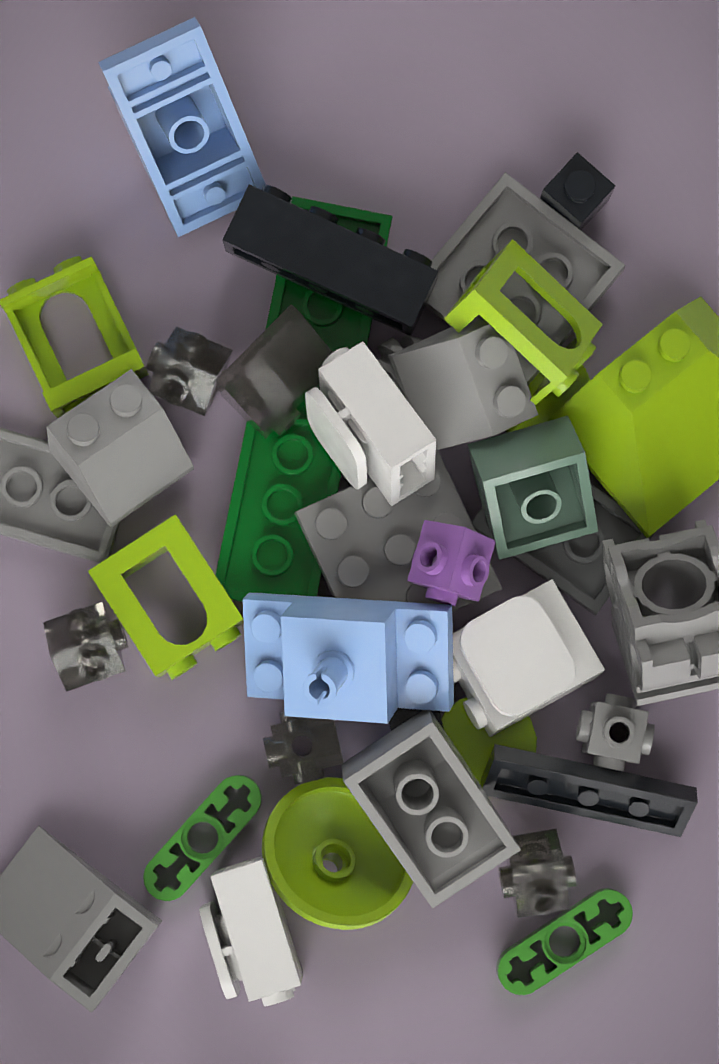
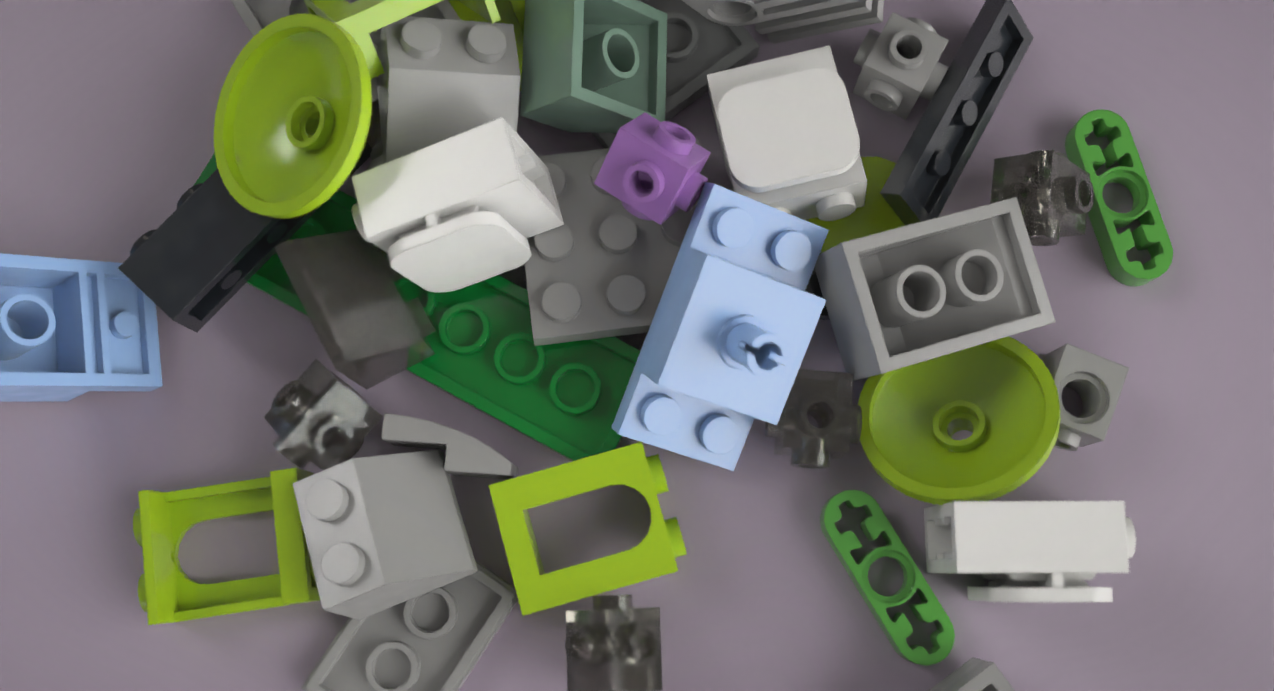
camera: 65 degrees left, 5 degrees down
(197, 487) = (464, 453): none -> light grey slope
(395, 279) = (292, 116): none -> lime dish
(402, 960) = (1098, 385): none -> light grey brick

